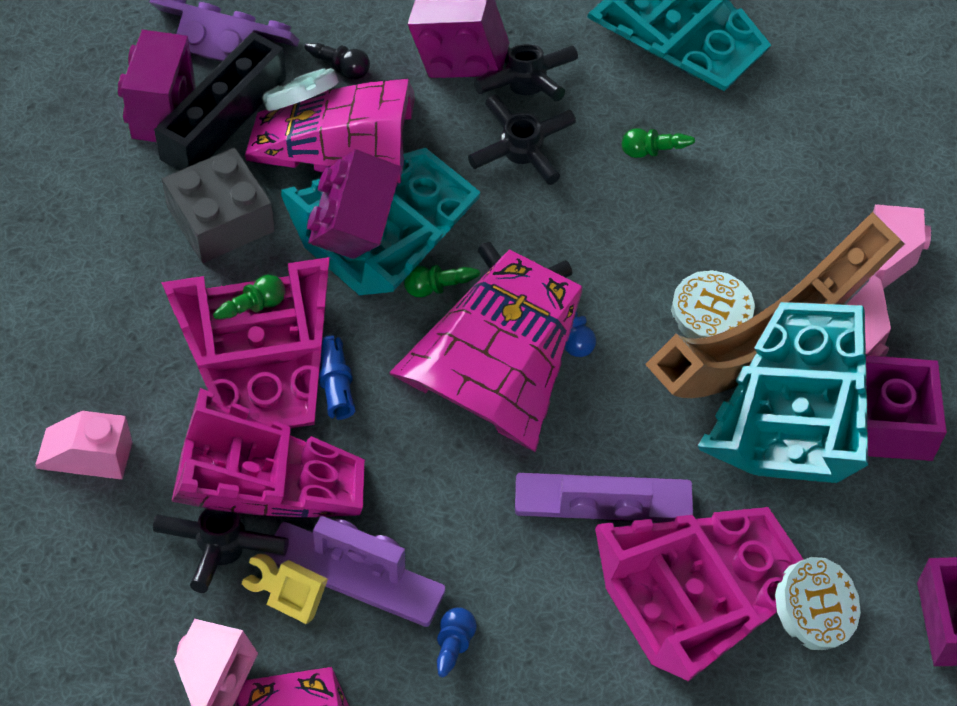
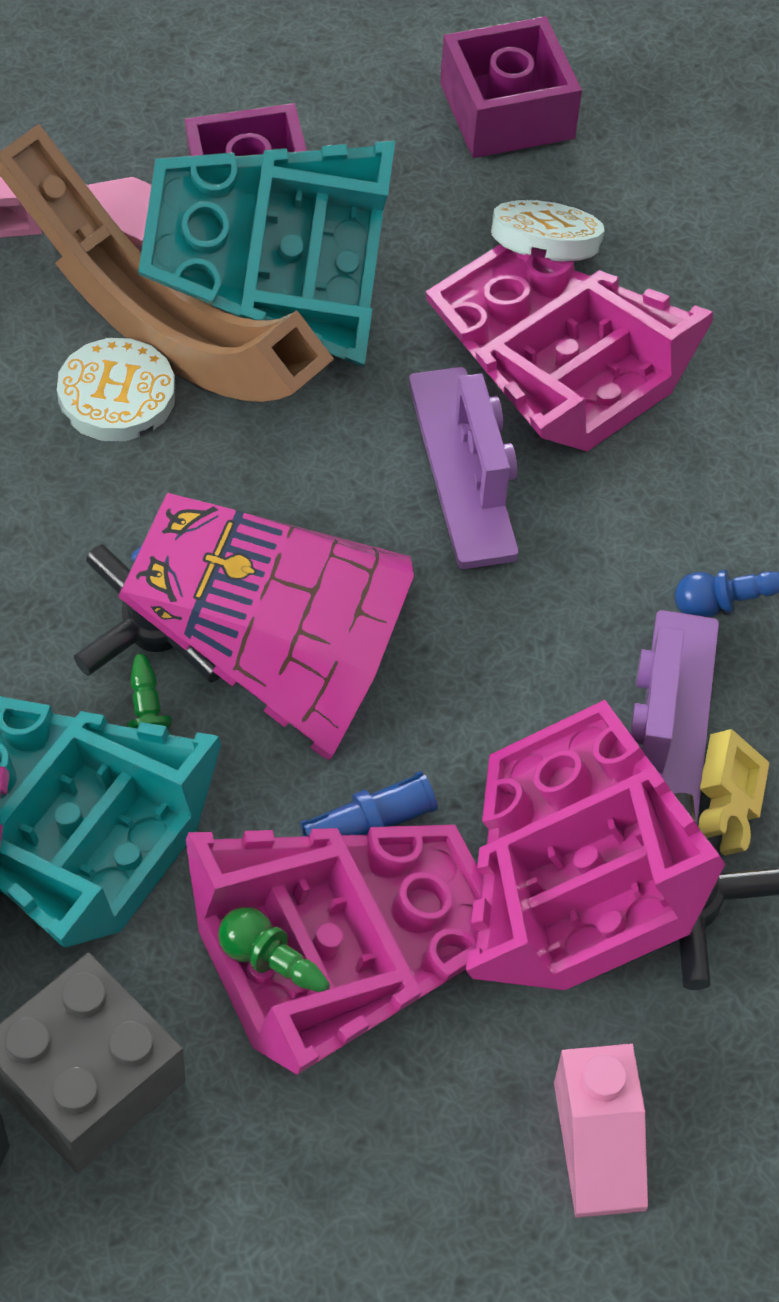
camera: 105 degrees left, 0 degrees up
(353, 204) = (98, 798): magenta brick -> none

